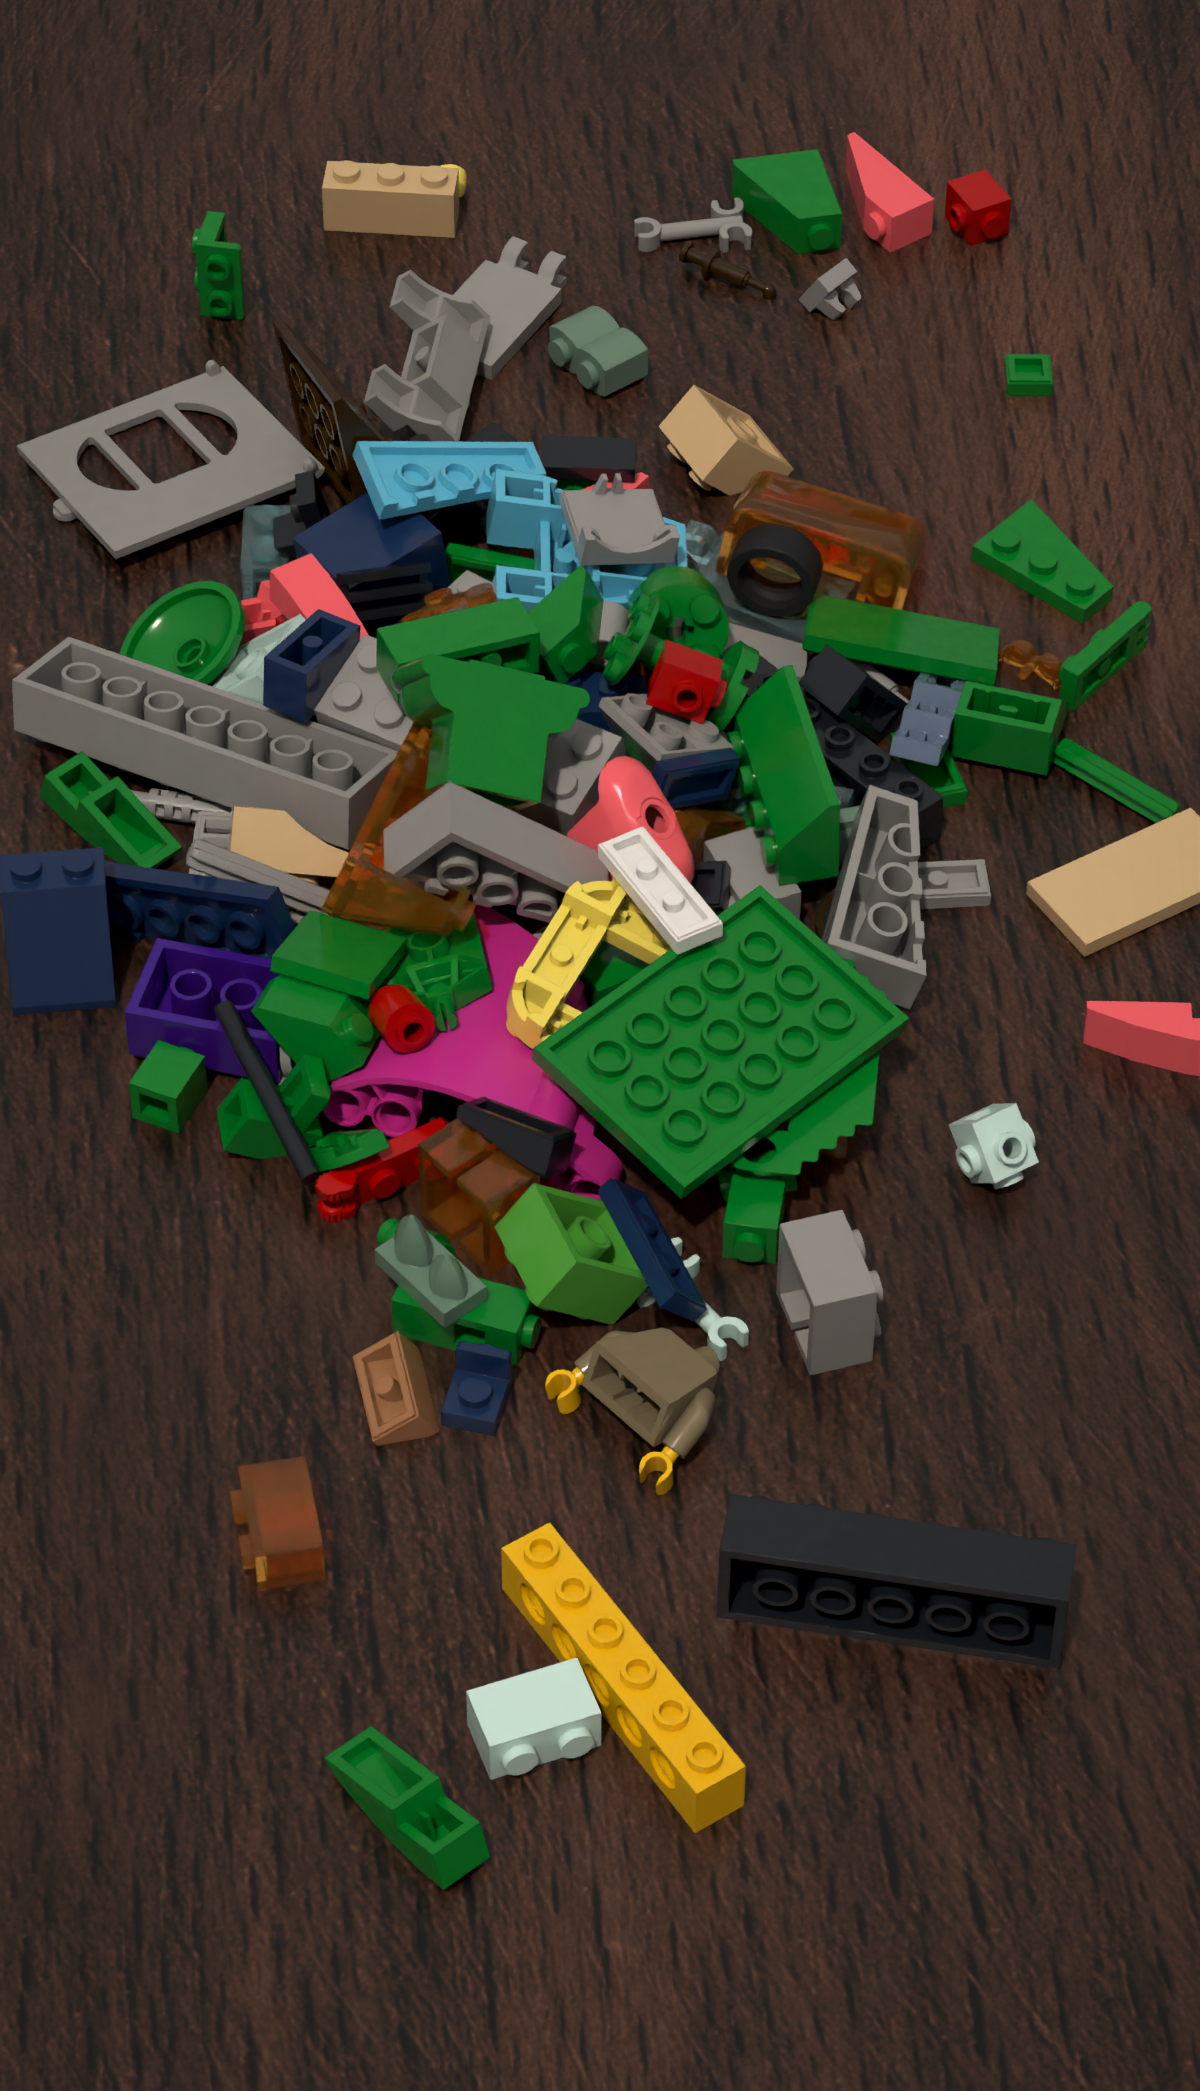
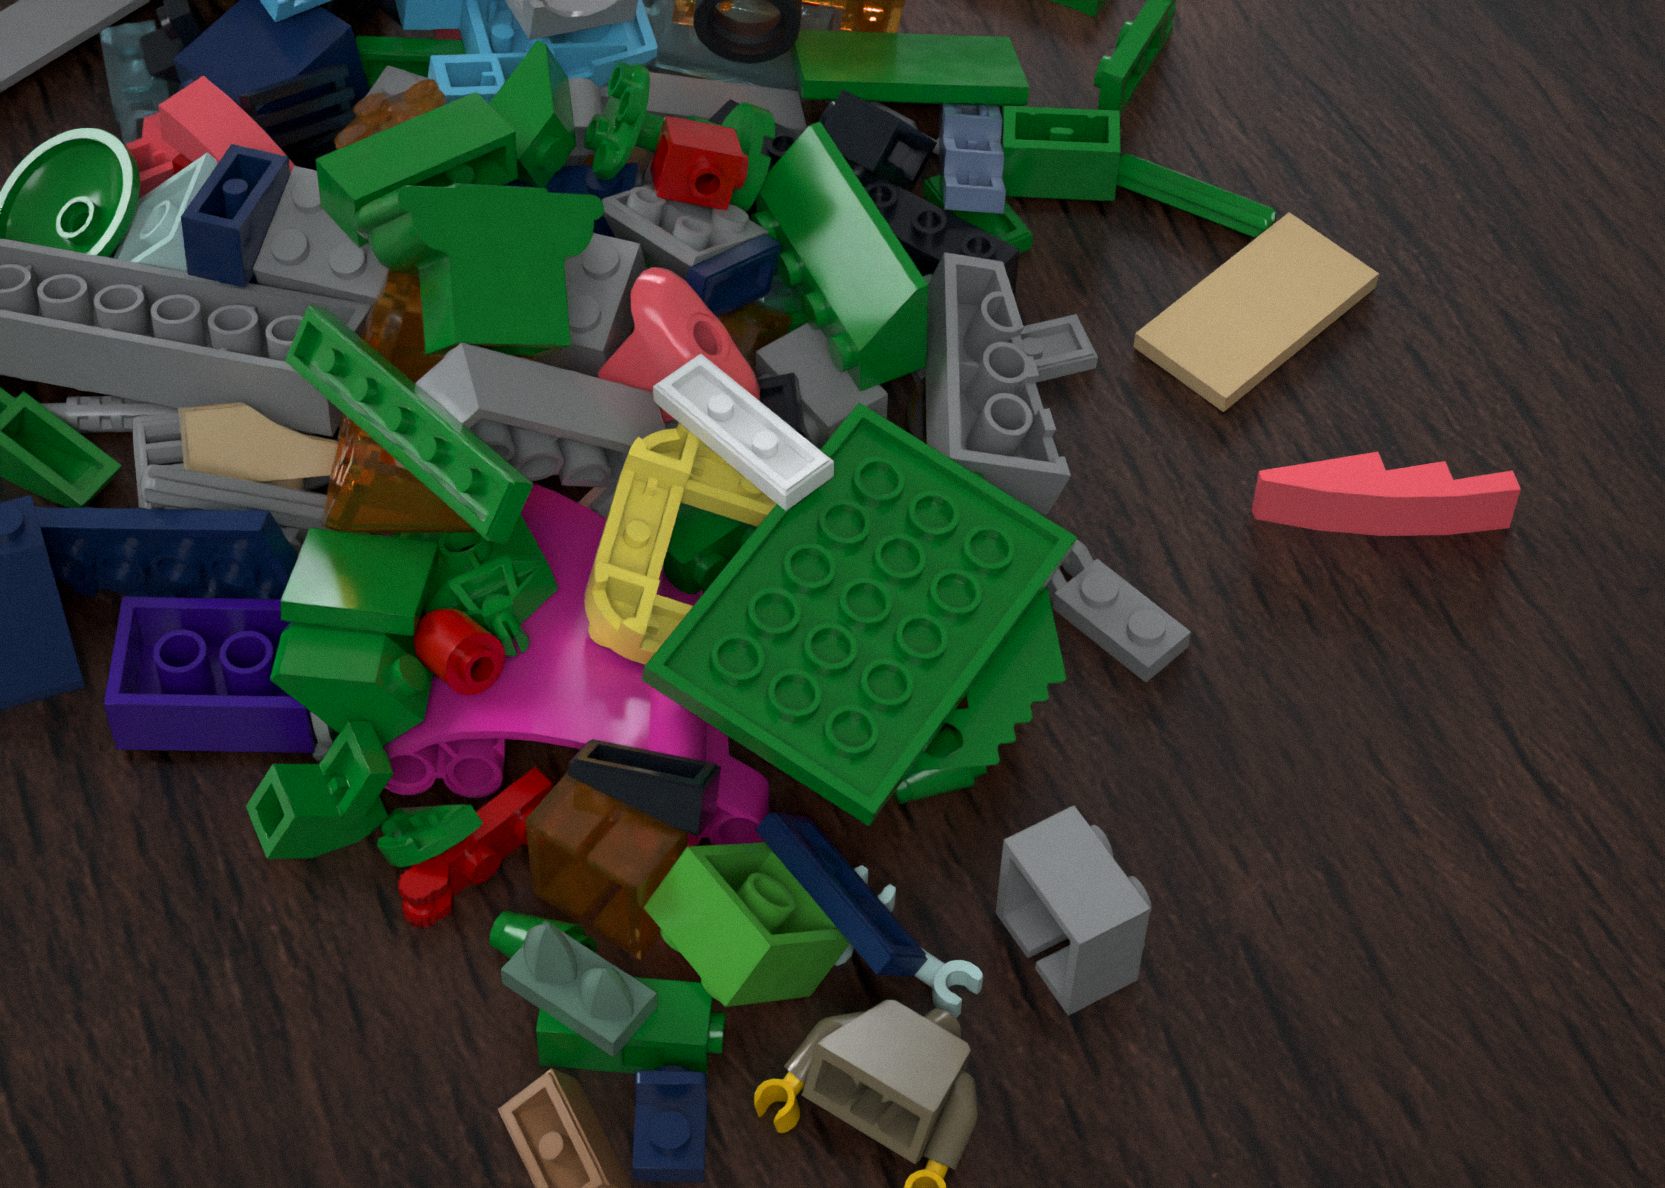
camera: 15 degrees left, 5 degrees up
(168, 1086) = (177, 786): green brick -> none
(267, 1092) = (310, 777): black bar -> none
(397, 838) = (409, 424): none -> green tile
(688, 596) = (672, 60): green brick -> none
(753, 1218) = (948, 824): green brick -> none
(930, 1082) = (1116, 615): none -> light grey hinge
(994, 1145) = (1206, 672): light aqua brick -> none
(1023, 655) = (1045, 64): clear orange piece -> none

